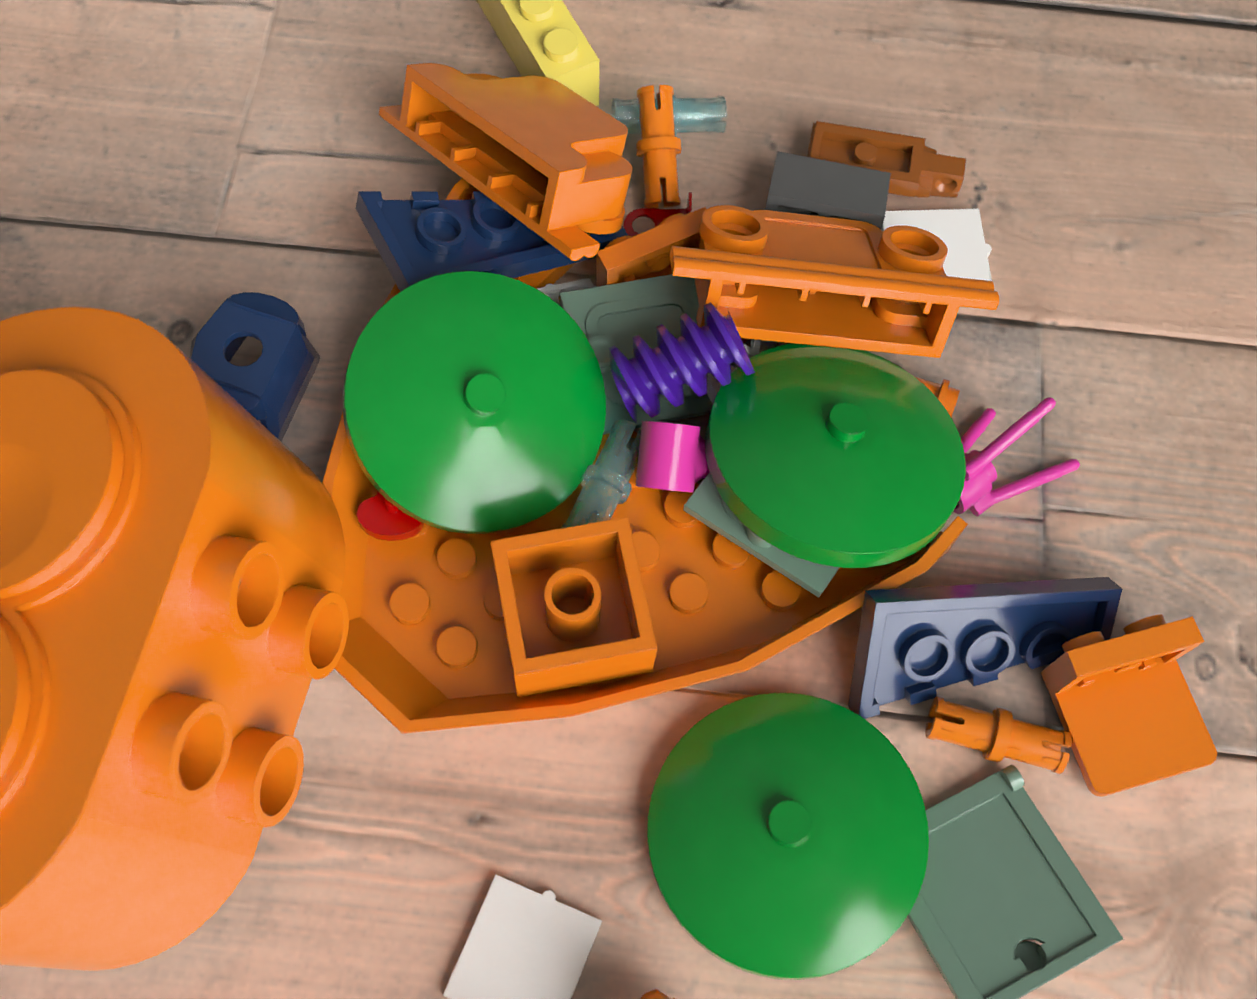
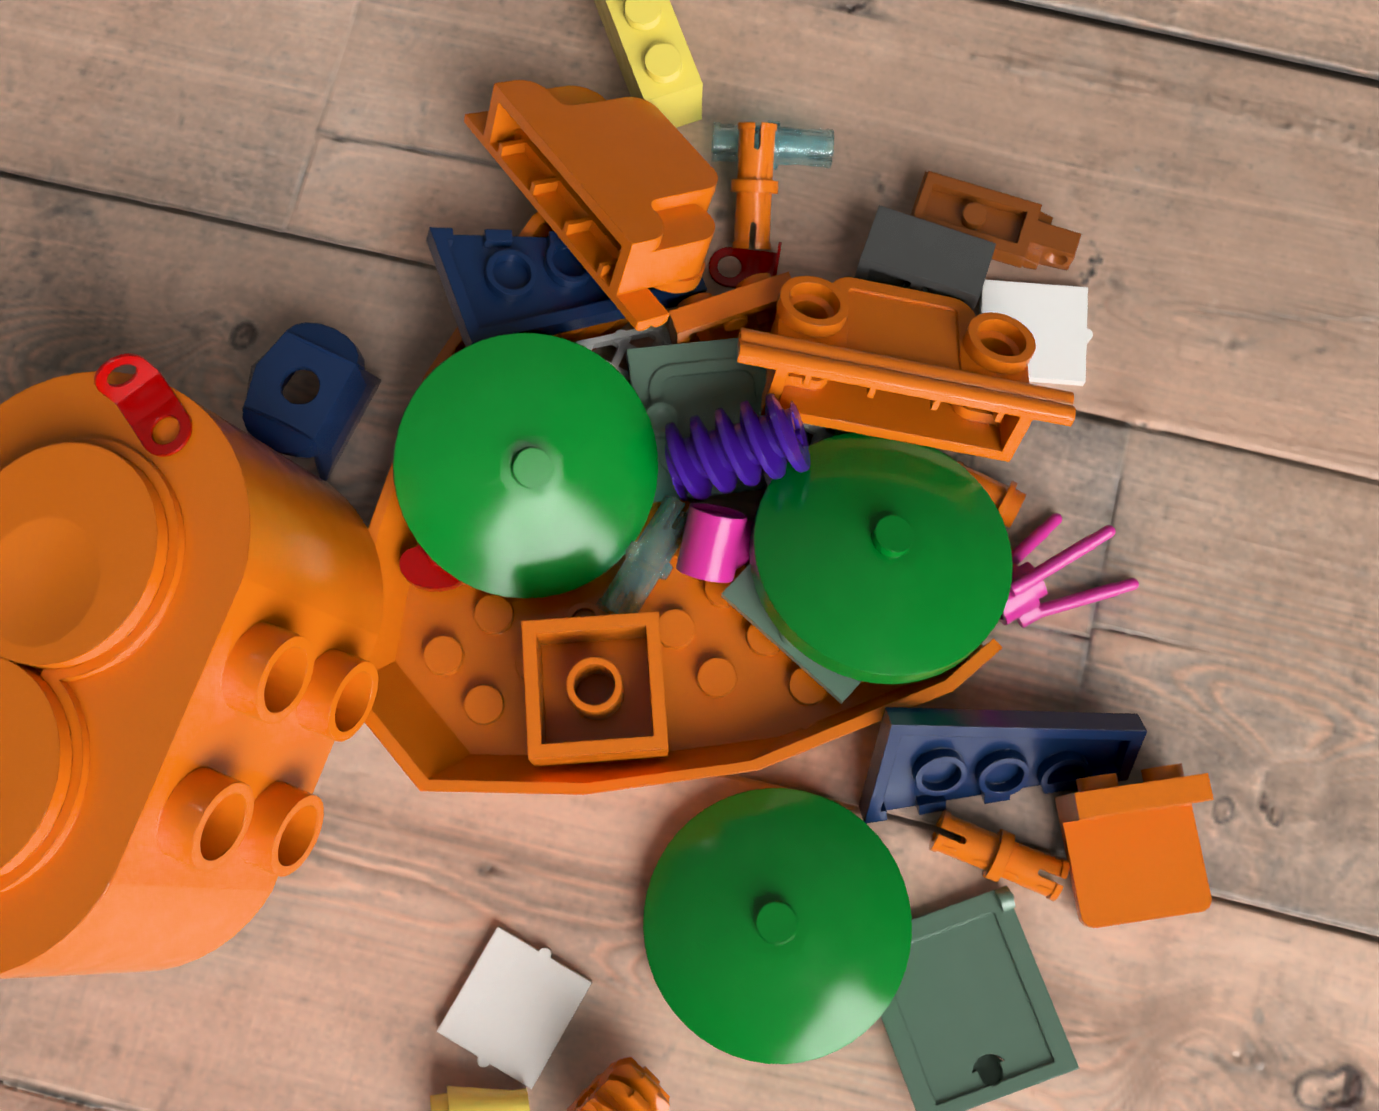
camera: 10 degrees right, 10 degrees up
(88, 324) = (145, 402): none -> red piece

